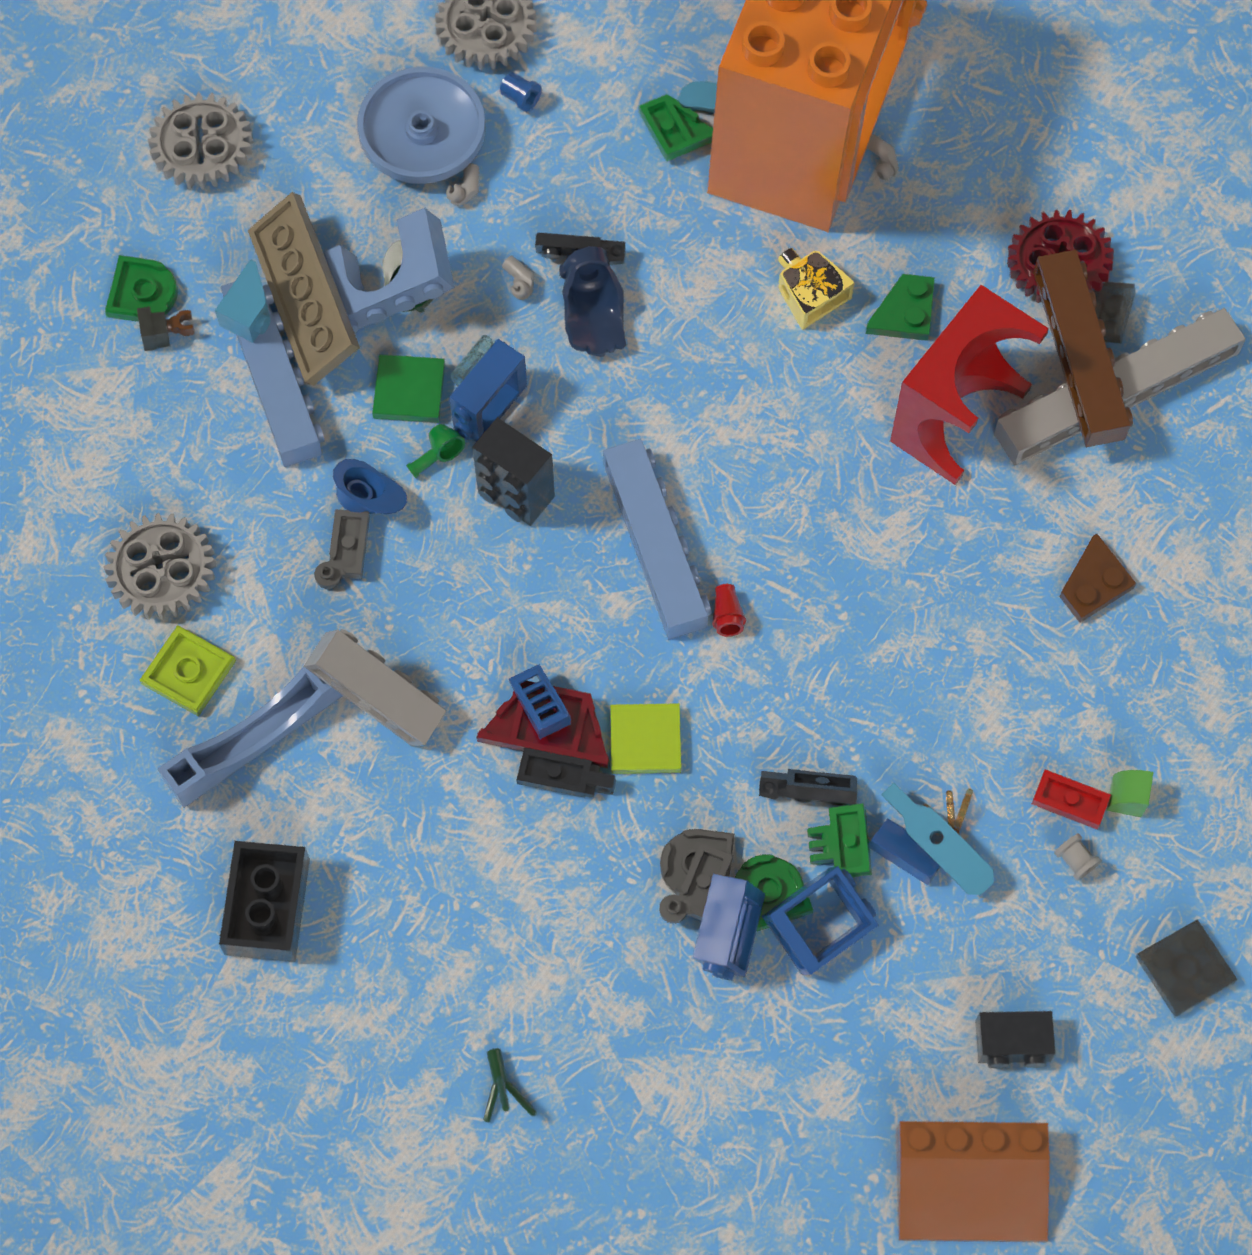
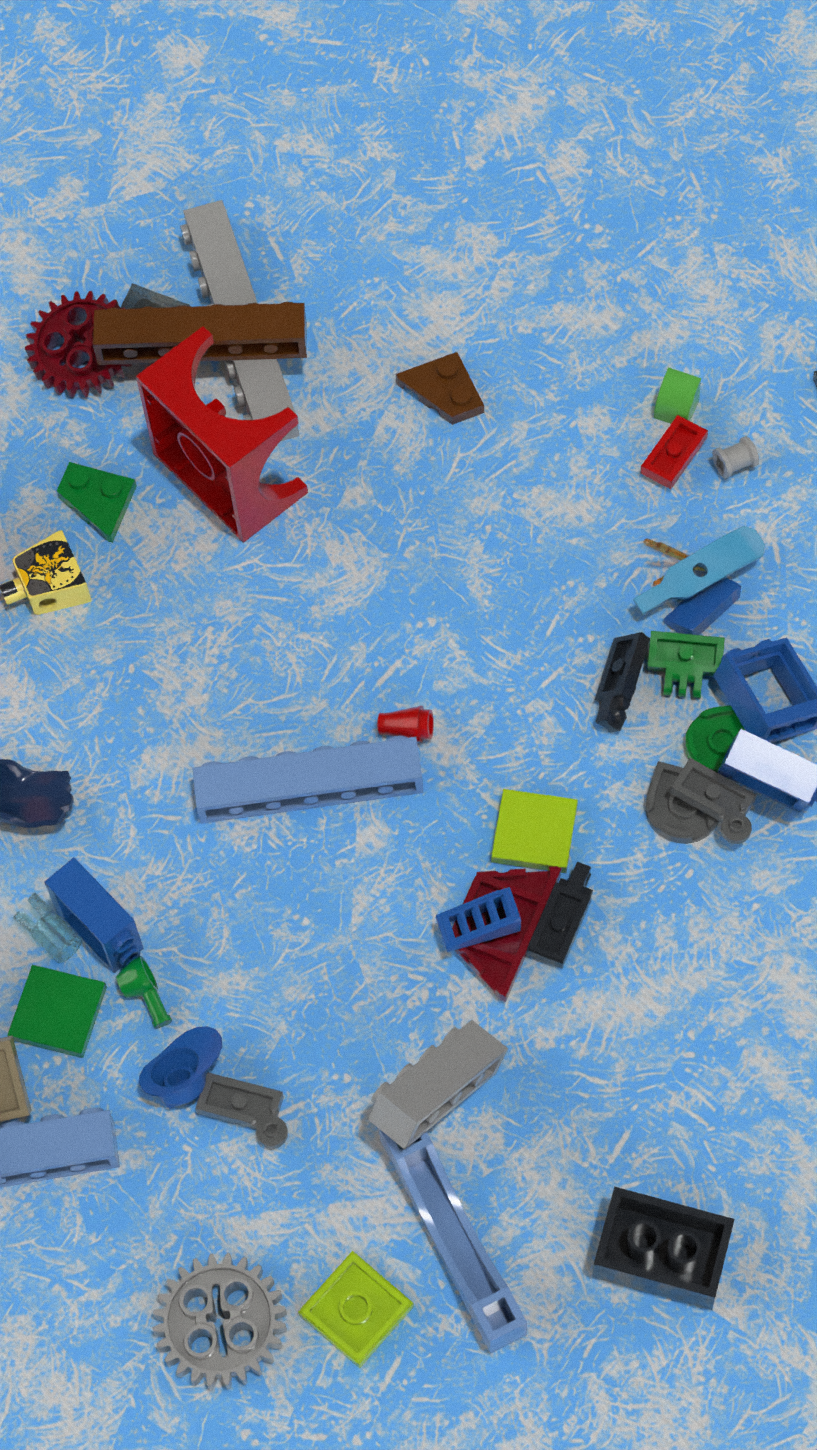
camera: 75 degrees left, 5 degrees down
(513, 472) = (208, 896): black brick -> none

